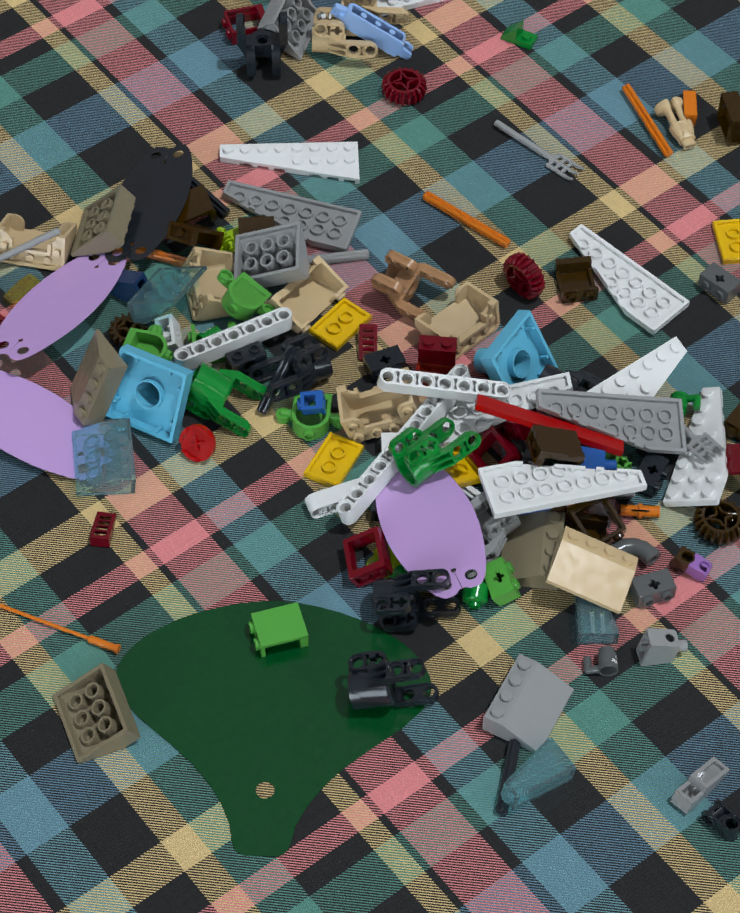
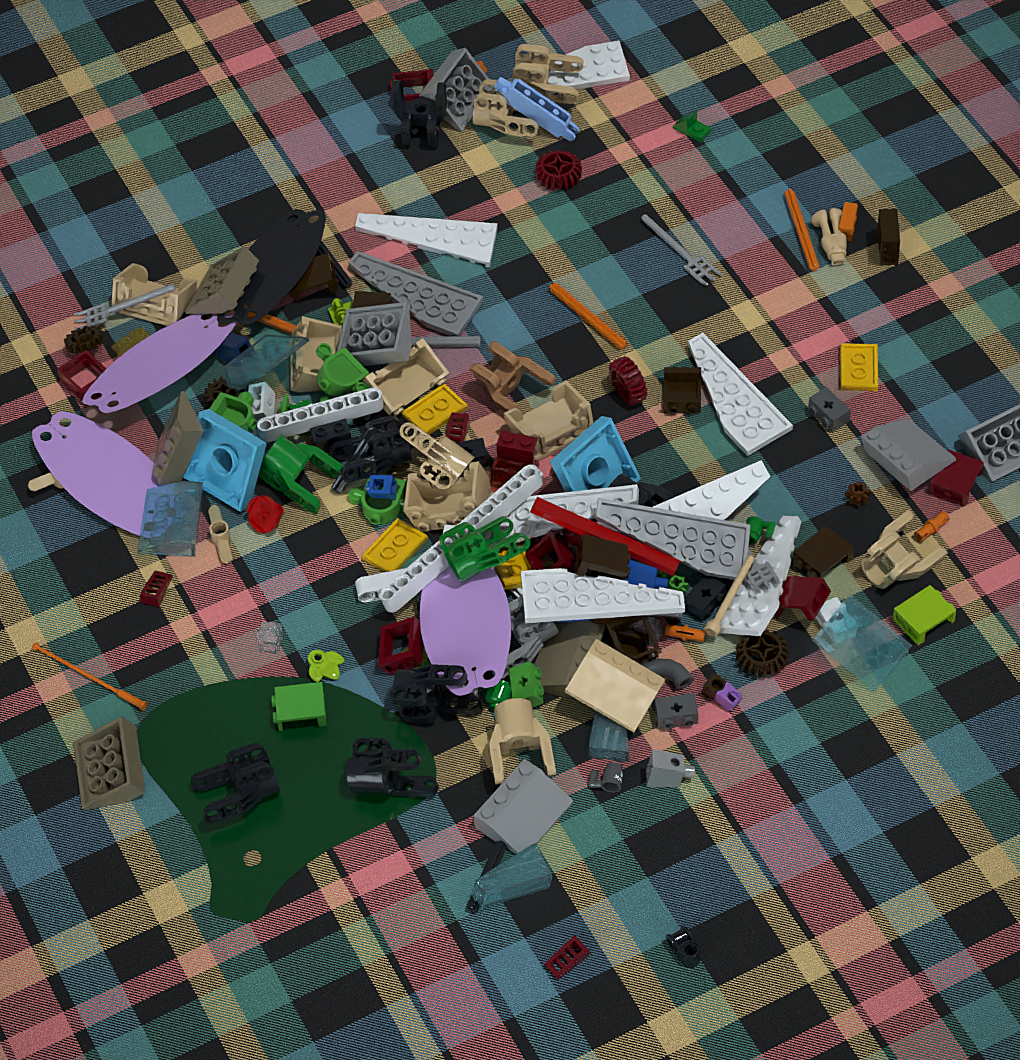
camera: 15 degrees right, 0 degrees up
(157, 473) = (221, 540): none -> tan piece
(193, 234) = (297, 303): dark brown panel -> none
(231, 564) = (269, 637): none -> clear brick
(245, 707) = (251, 776): none -> black piece
(294, 587) = (325, 667): none -> lime plate
(365, 364) = (441, 456): none -> tan piece
(435, 381) = (499, 479): white beam -> none
(504, 624) = (516, 729): none -> tan piece
(623, 837) = (568, 947): none -> dark red slope
(668, 500) = (713, 626): none -> tan piece
(699, 785) = (671, 909): light grey slope -> none

